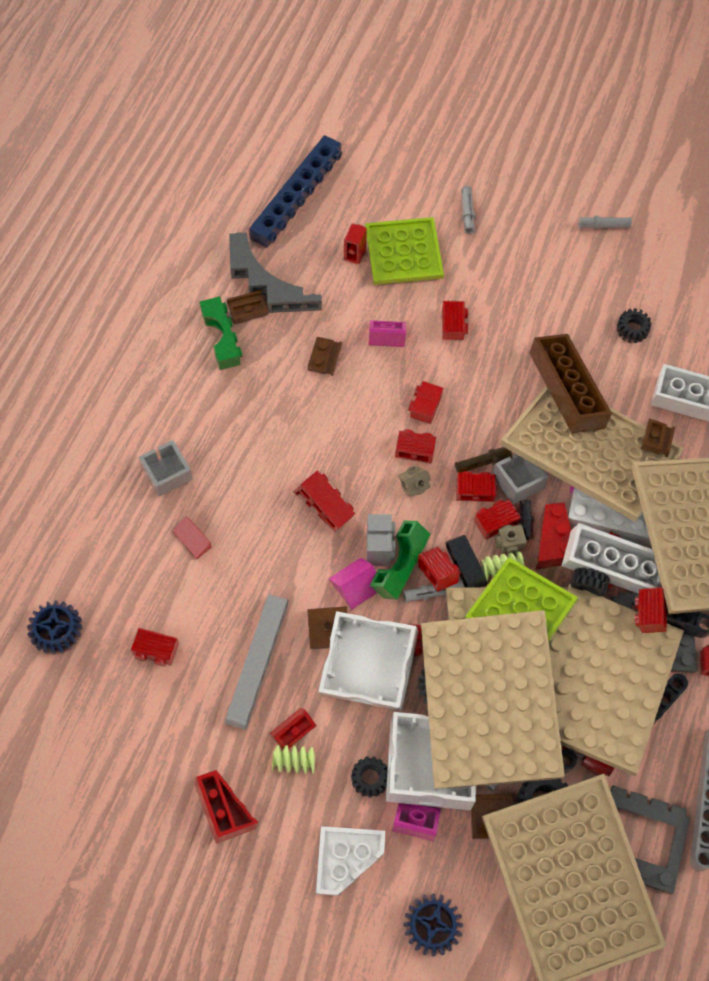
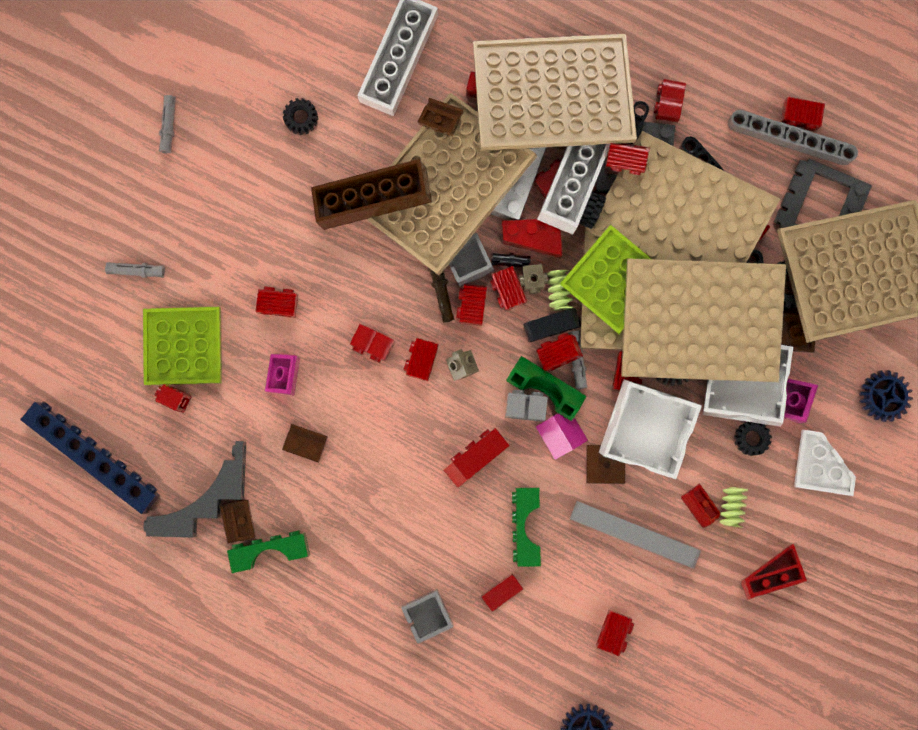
camera: 80 degrees left, 20 degrees up
(234, 555) = (526, 552): none -> green arch

